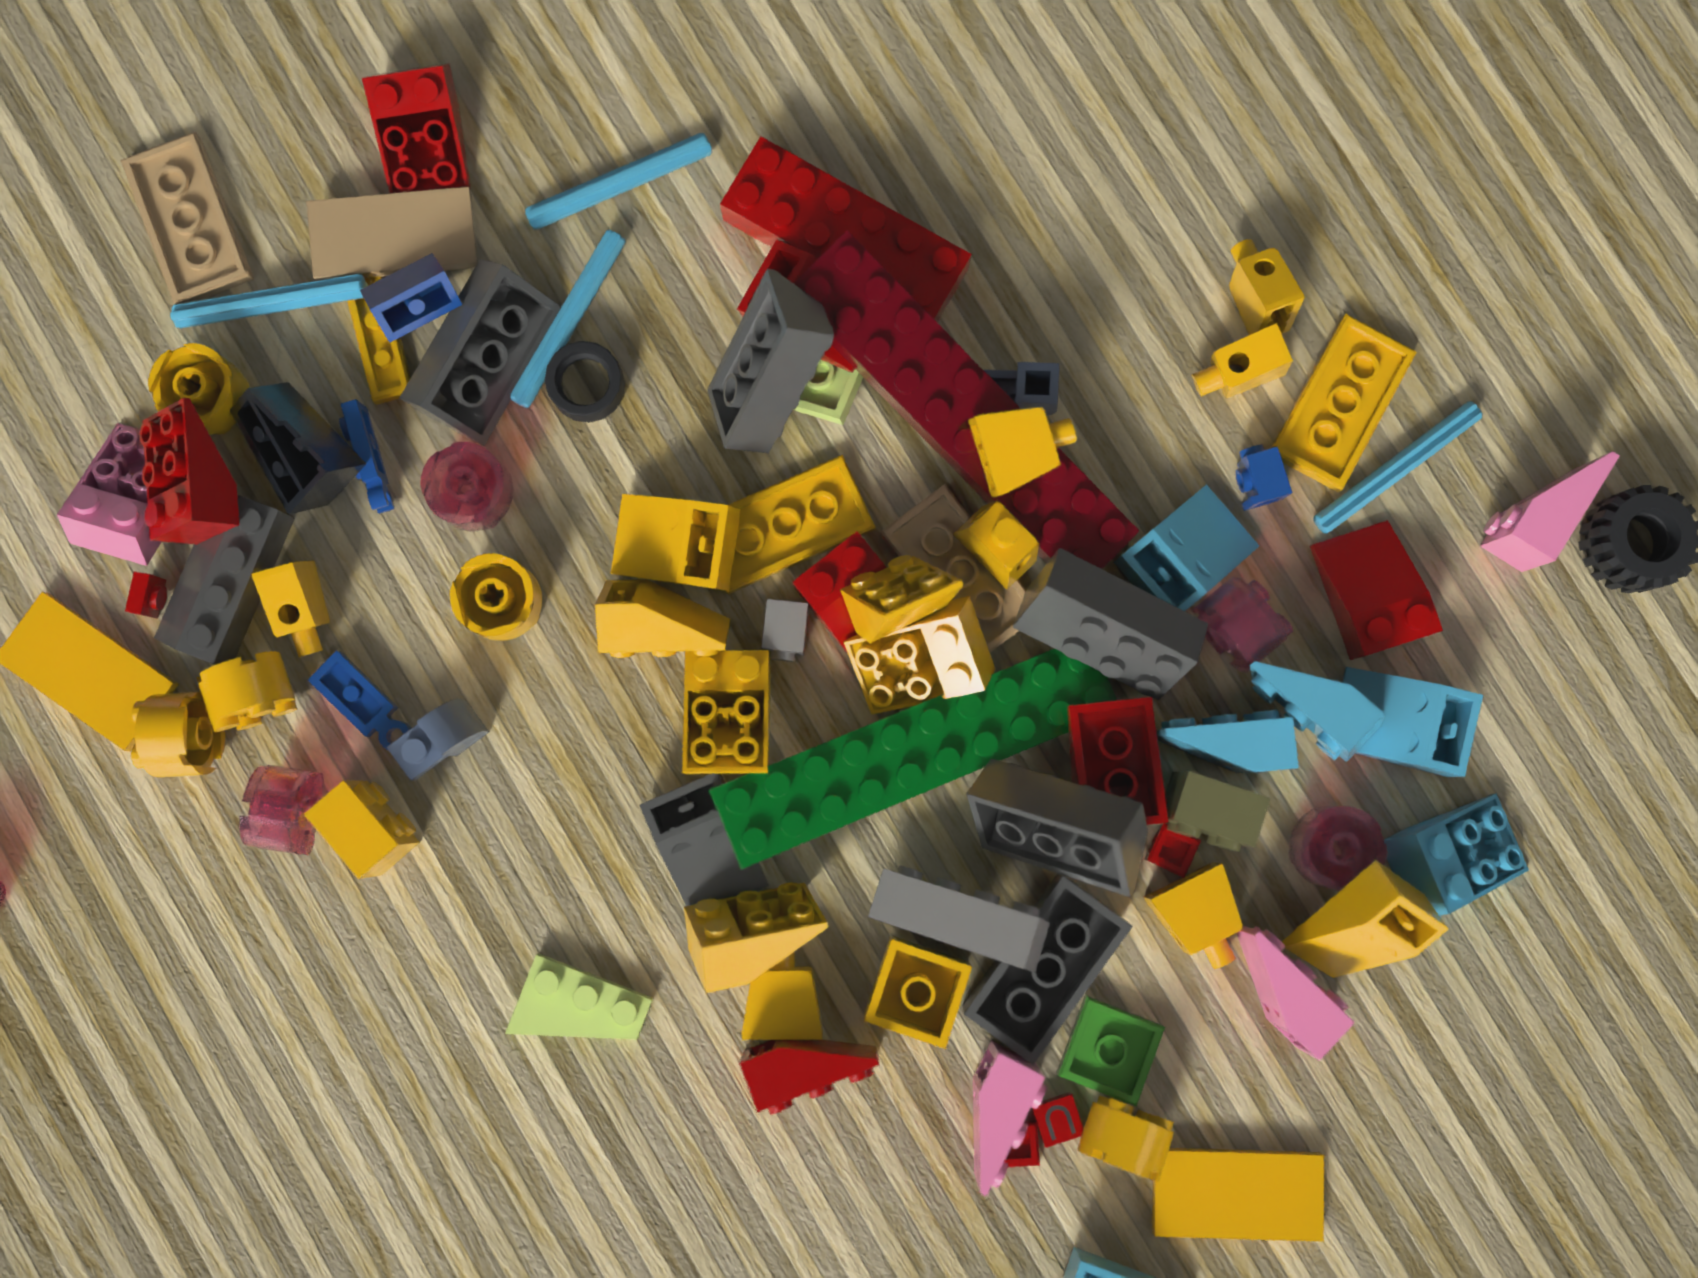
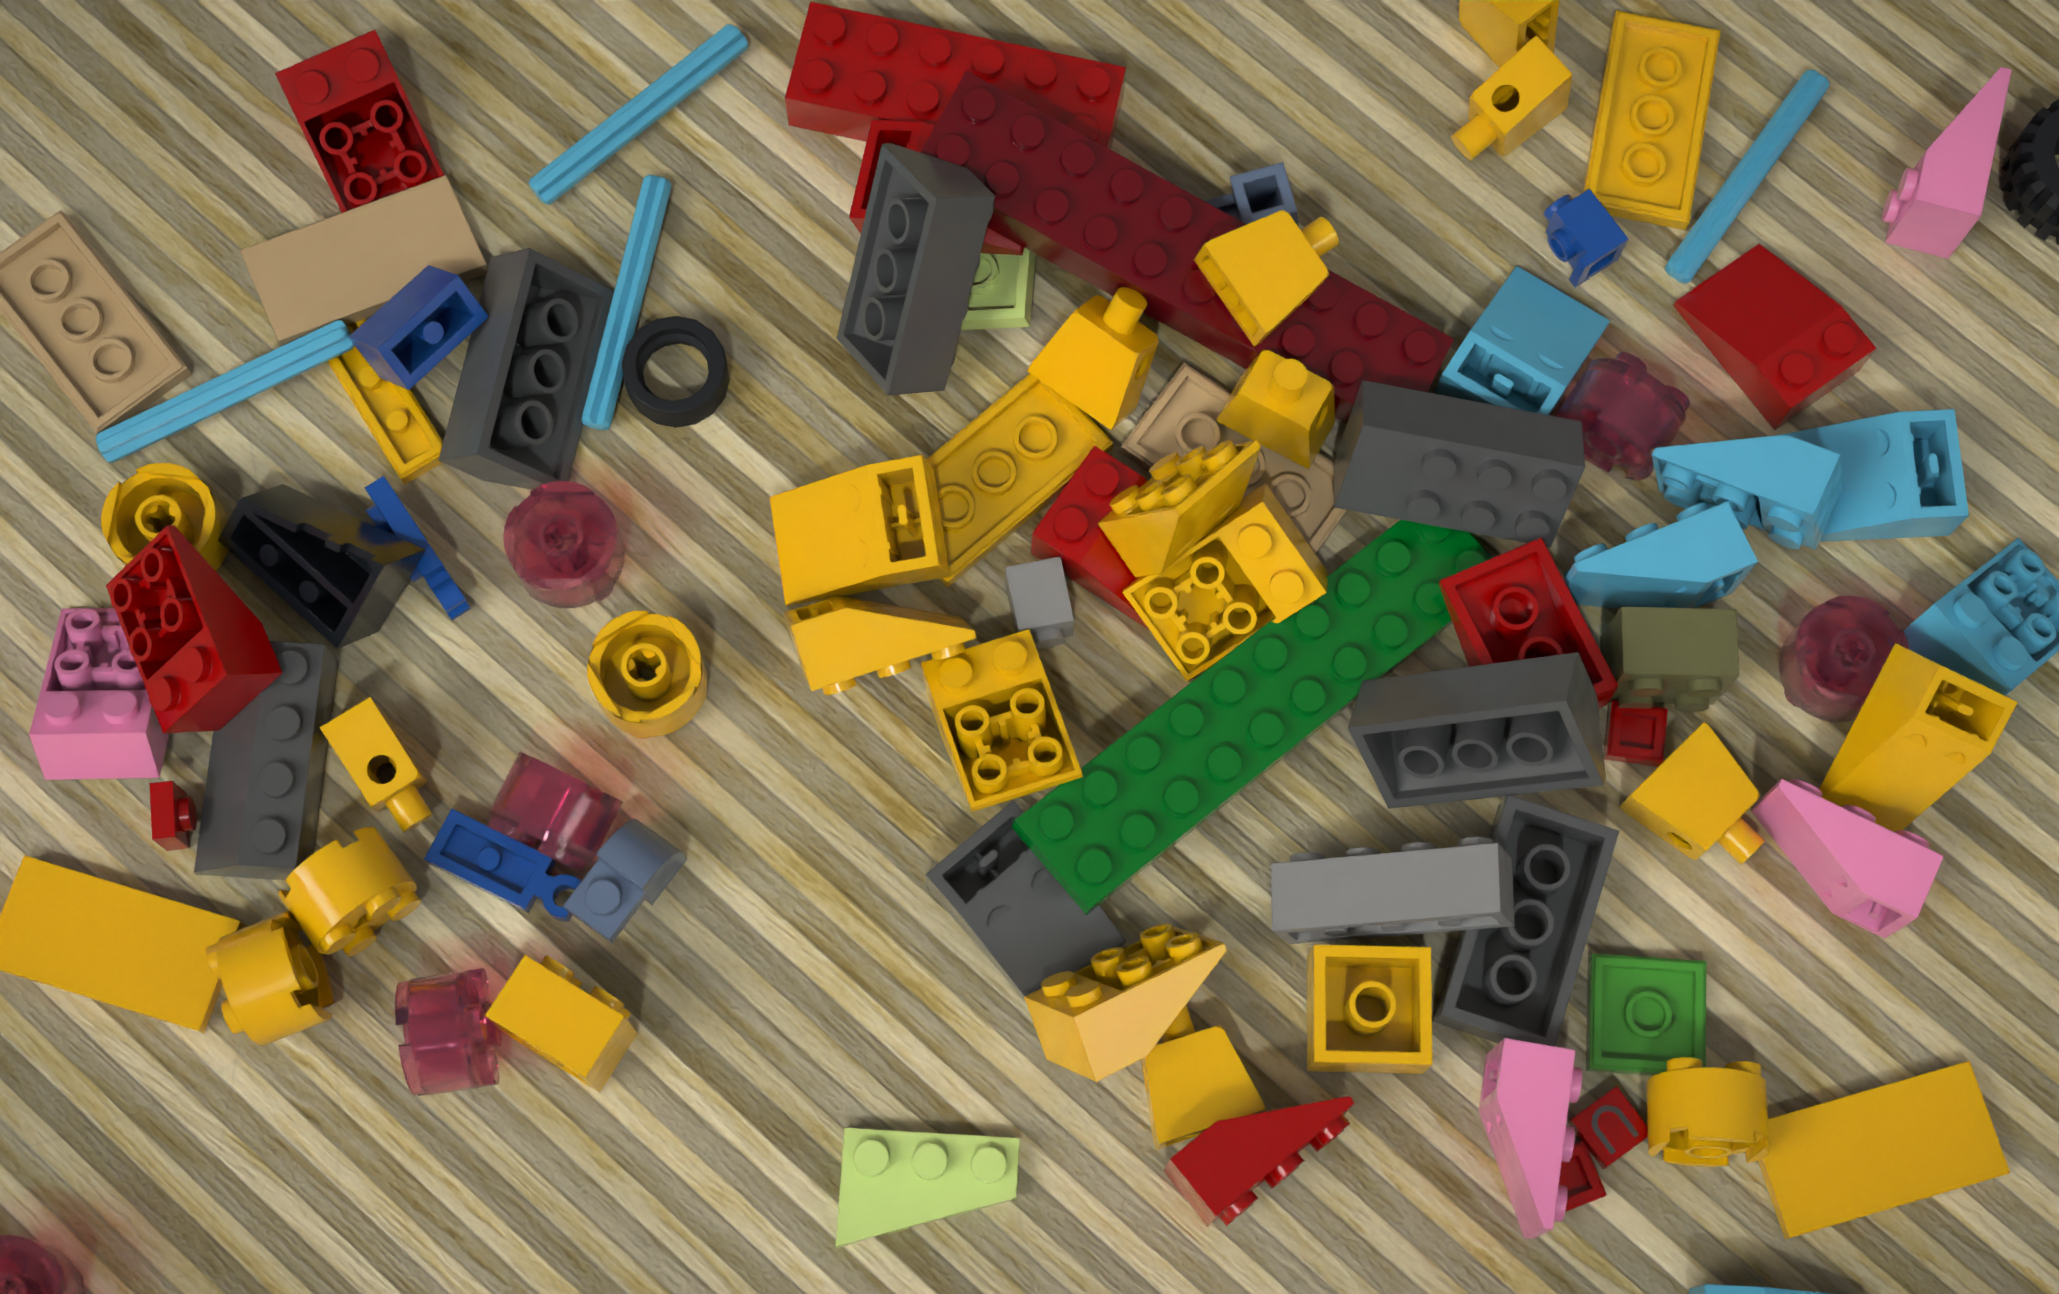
camera: 20 degrees left, 10 degrees down
(401, 676) = (554, 808): none -> clear pink brick
(884, 465) = (1100, 357): none -> yellow torso

